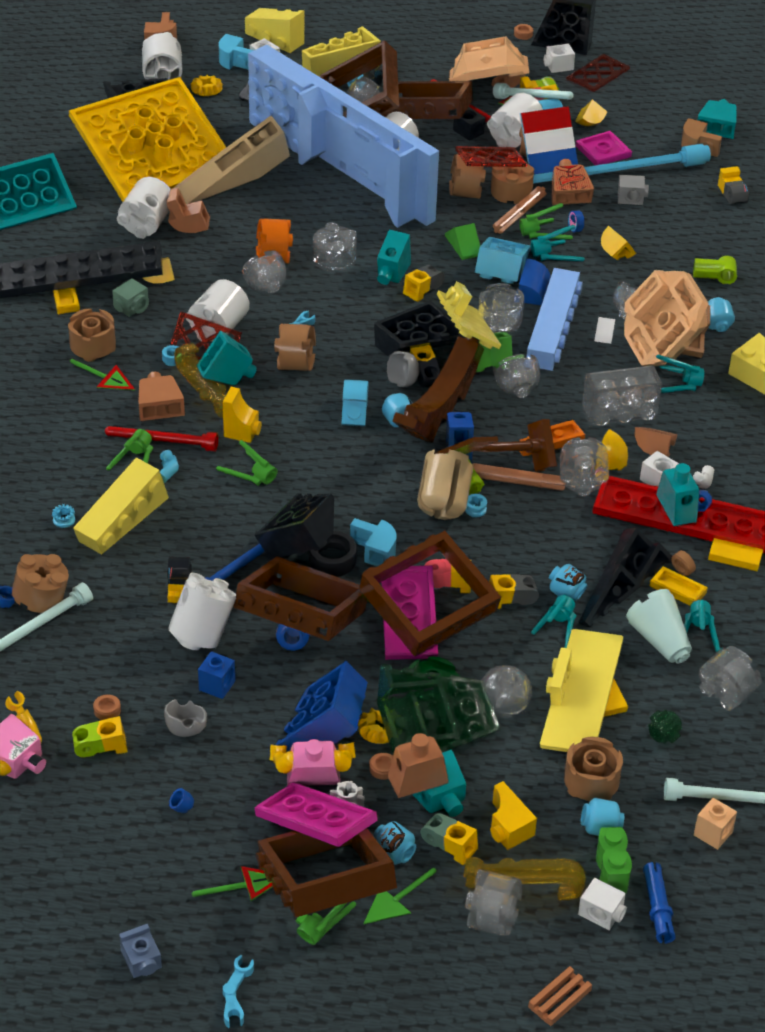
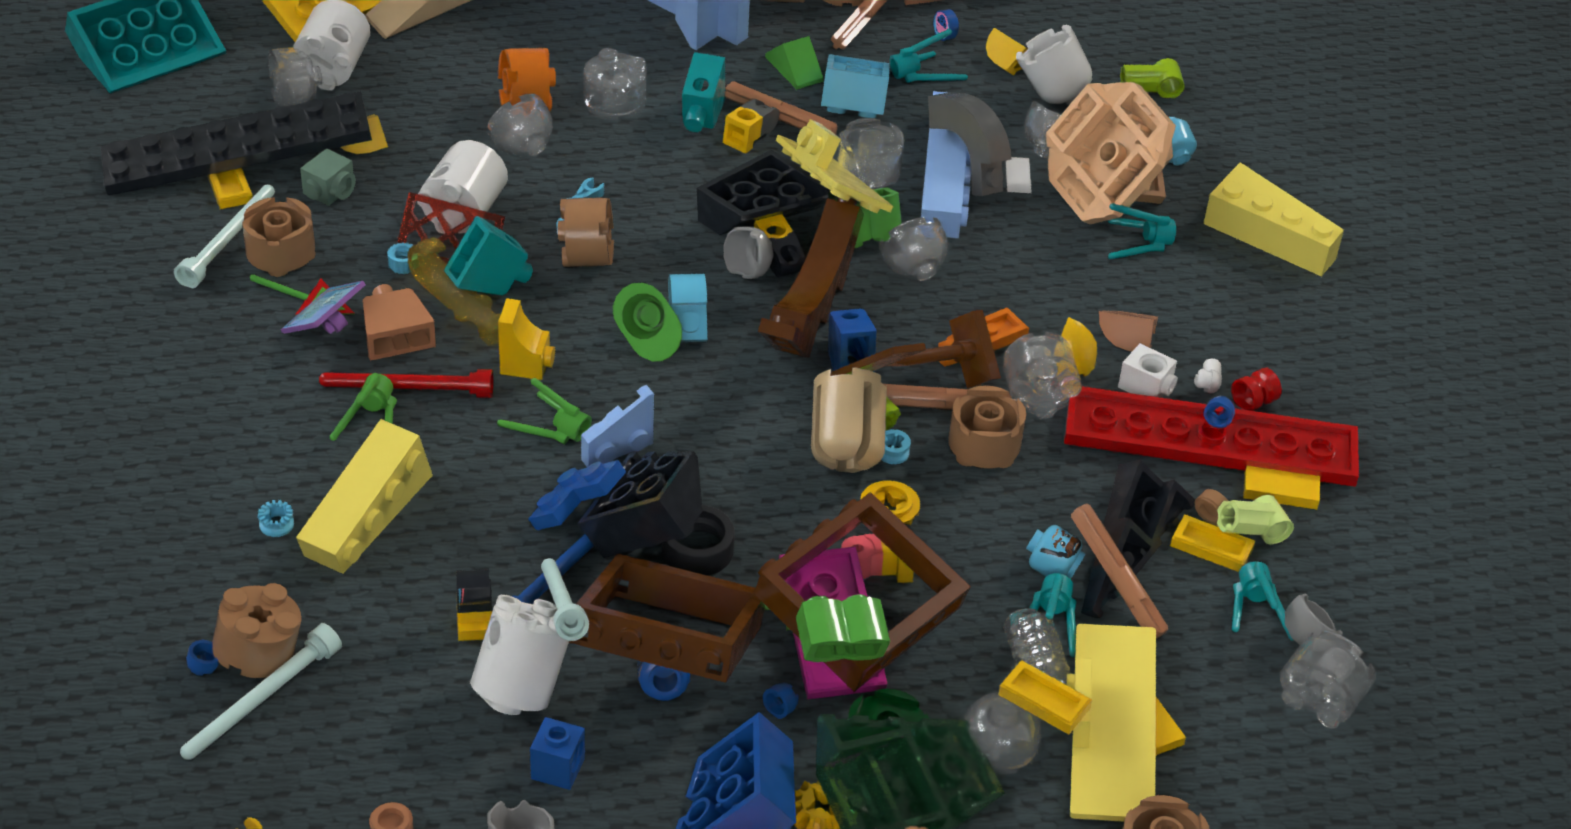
camera: 10 degrees left, 0 degrees up
(33, 353) = (192, 270): none -> light aqua piece
(114, 385) = (324, 310): none -> piece
(117, 227) = (293, 76): none -> clear cylinder
(169, 464) = (426, 423): medium azure arm -> none
(186, 217) = (391, 55): nougat brick -> none
(232, 590) = (569, 618): none -> light aqua piece
(257, 513) = (572, 489): none -> blue plate
(293, 479) = (620, 431): none -> light blue wing
(325, 409) = (647, 321): none -> bright green piece
(366, 657) = (773, 703): none -> blue hinge
(377, 540) = (764, 514): medium azure brick -> none
(393, 404) = (748, 309): medium azure head -> none
(408, 614) = (842, 629): none -> bright green brick
(450, 275) = (788, 113): none -> nougat axle
(472, 537) = (899, 496): none -> yellow gear
(515, 589) = (983, 569): leg -> none
(531, 224) = (885, 33): bright green plant -> none
(533, 669) = (1045, 697): none -> yellow tile
(534, 282) = (908, 112): blue brick -> none
(539, 498) = (986, 428): none -> medium nougat brick
(539, 642) = (1036, 642): none -> clear piece
(577, 299) = (980, 132): none -> dark grey arch
(606, 596) = (1118, 569): none -> nougat axle
(621, 396) = (1070, 267): clear brick -> none
(644, 254) = (1056, 65): none -> white cylinder
(661, 625) = (1209, 607): light aqua cone -> none
(665, 726) = (1250, 765): clear green gear -> none
(679, 495) = (1190, 406): teal torso -> none
(711, 572) = (1259, 517): none -> yellowish green piece
(727, 636) = (1307, 617): none -> light grey hair
(735, 488) = (1258, 389): none -> red wheel

